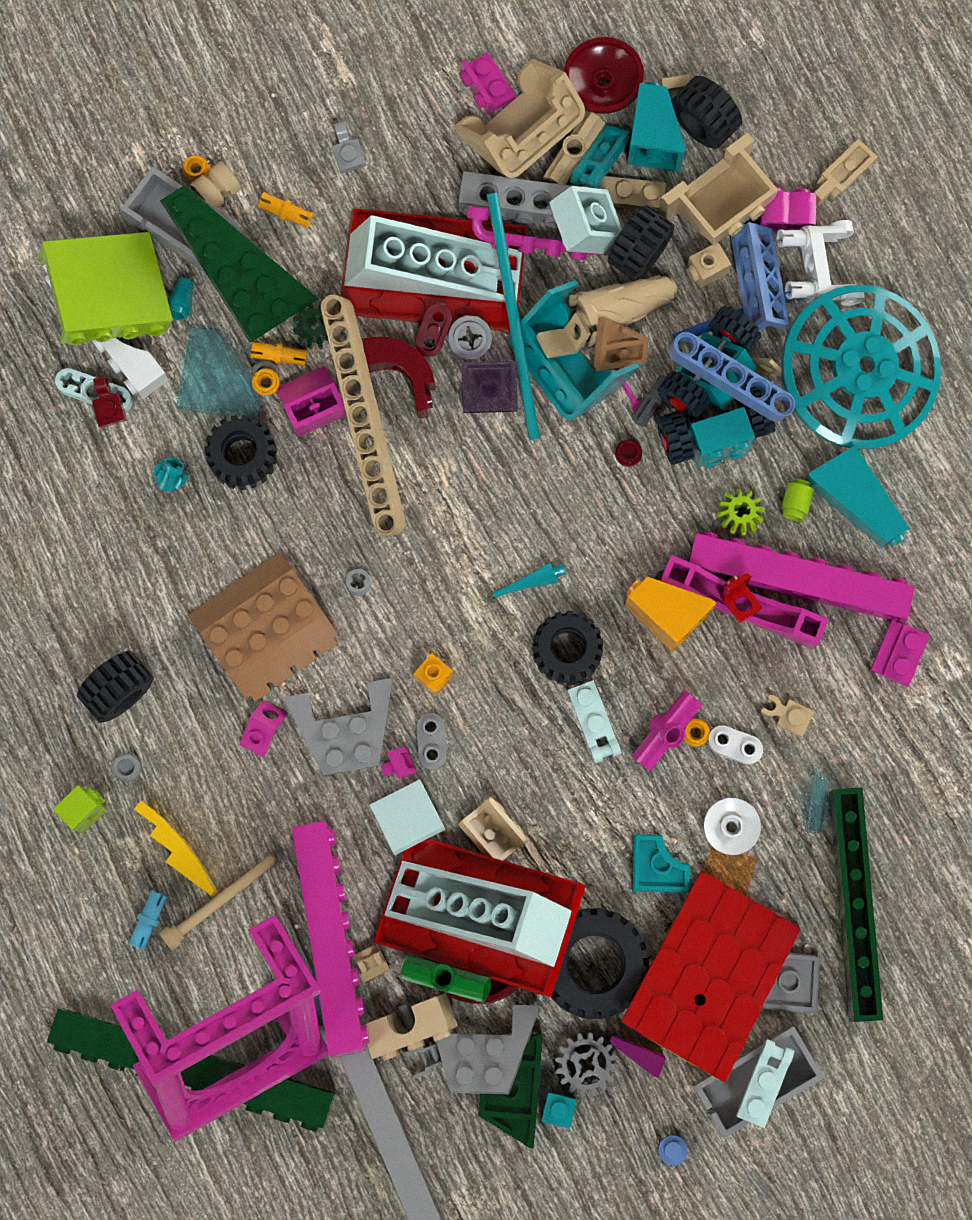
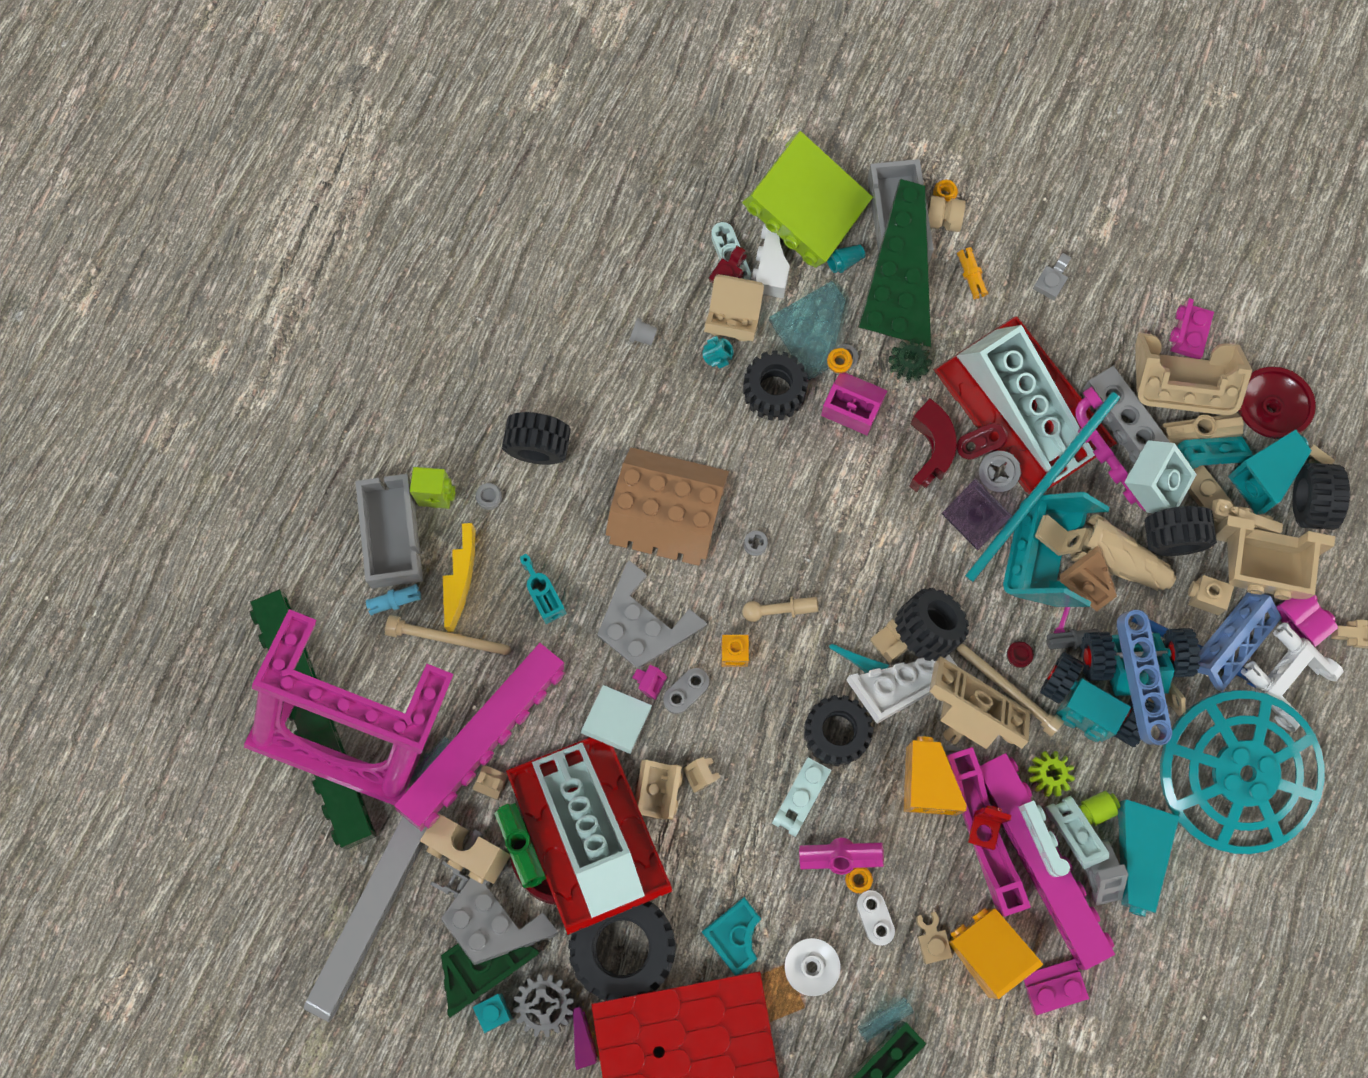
camera: 50 degrees right, 5 degrees down
(86, 875) = (389, 531): none -> light grey piece
(97, 521) = (643, 332): none -> light grey piece
(145, 428) = (734, 308): none -> tan bracket
(252, 796) = (547, 594): none -> teal piece
(261, 729) = (592, 564): dark pink bracket -> none
(279, 353) = (868, 353): light orange pin -> none
(353, 405) = (875, 455): tan beam -> none
(413, 631) = (754, 611): none -> tan pin
(509, 787) = (700, 774): none -> tan tile
(532, 544) = (889, 643): none -> tan panel
(548, 500) = (931, 624): none -> black tyre
(574, 570) = (893, 688): none -> white wing
(643, 524) = (976, 708): none -> tan brick
(652, 194) = (1223, 508): none -> tan hinge
(700, 477) = (1049, 721): none -> tan piece
(787, 563) = (1044, 839): none -> light aqua plate
(802, 532) = (1077, 832): none -> light aqua plate
(837, 677) = (993, 953): none -> light orange slope
(846, 539) = (1107, 878): none -> light grey tile

